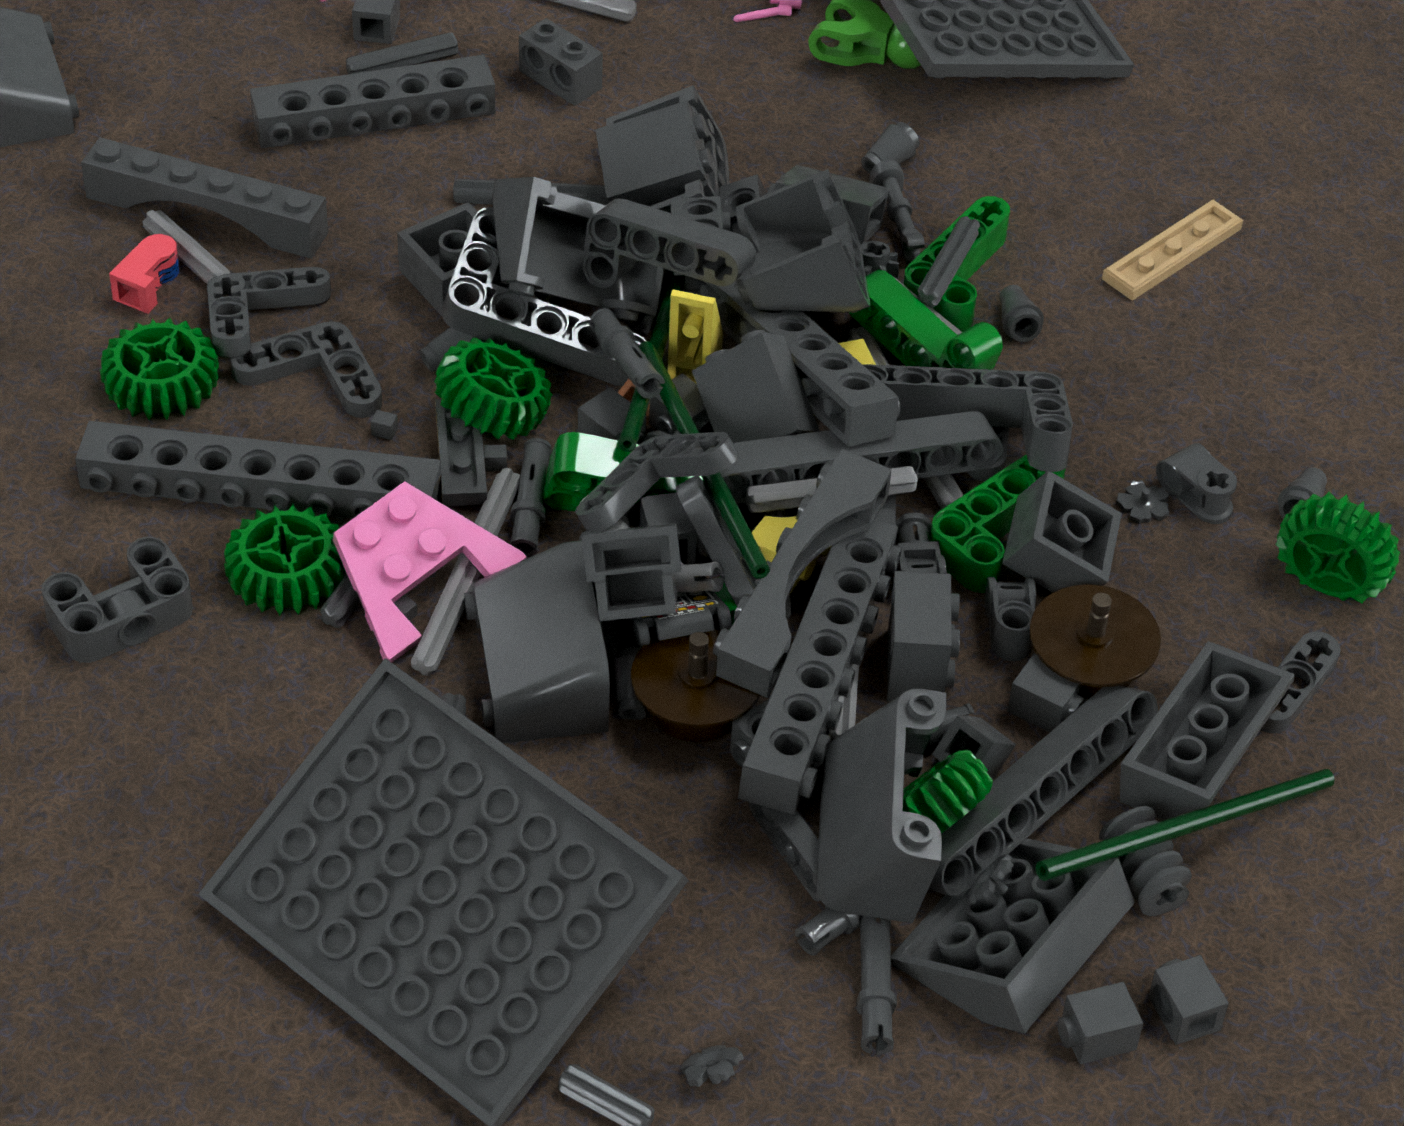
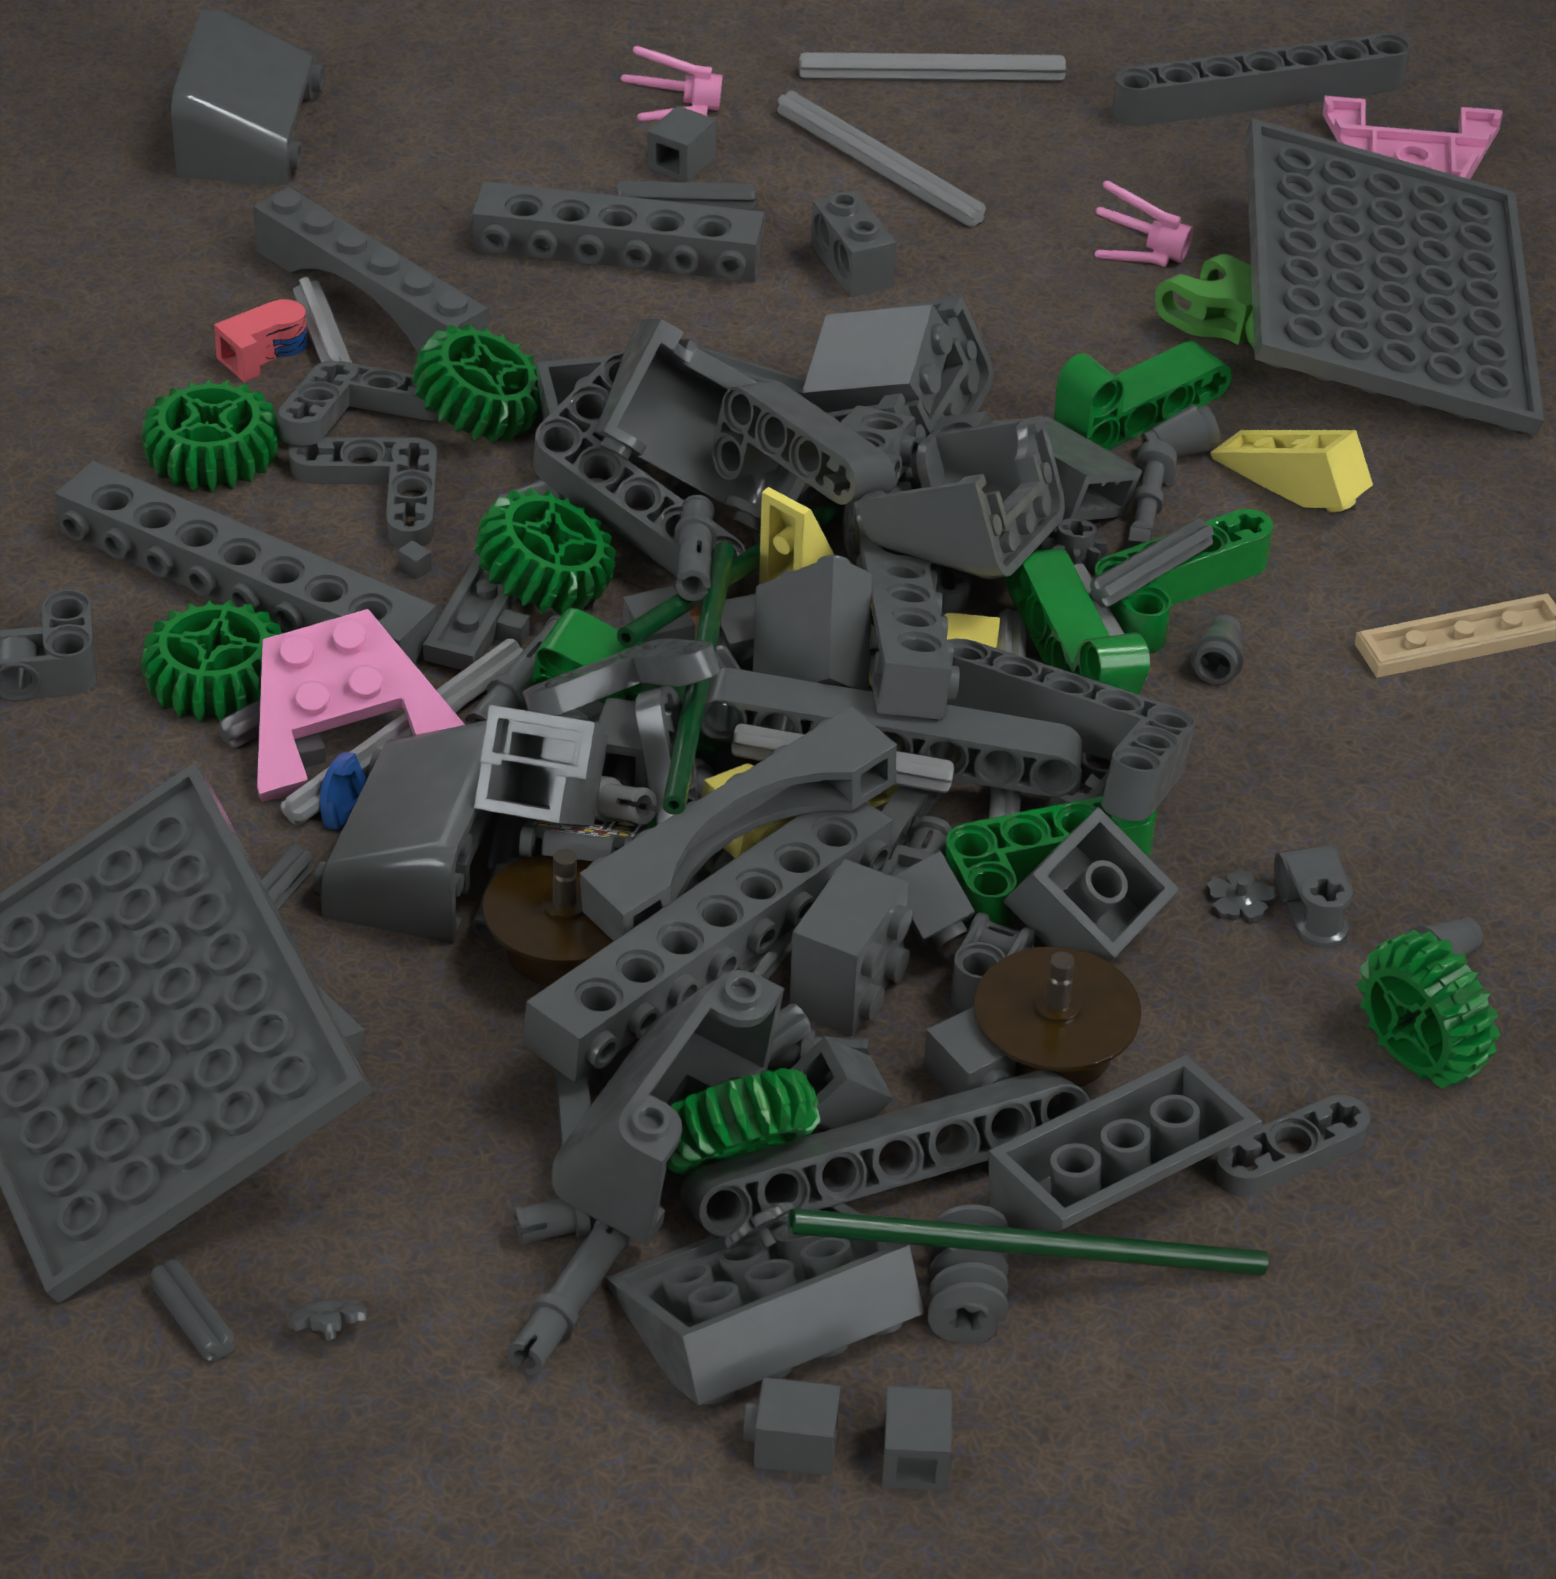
camera: 25 degrees right, 5 degrees down
(351, 262) = (478, 383): none -> green gear
(456, 636) = (341, 790): none -> blue tile
(835, 136) = (1117, 406): none -> green beam
(967, 576) = (936, 902): none -> dark grey brick
(990, 149) = (1301, 465): none -> light yellow slope

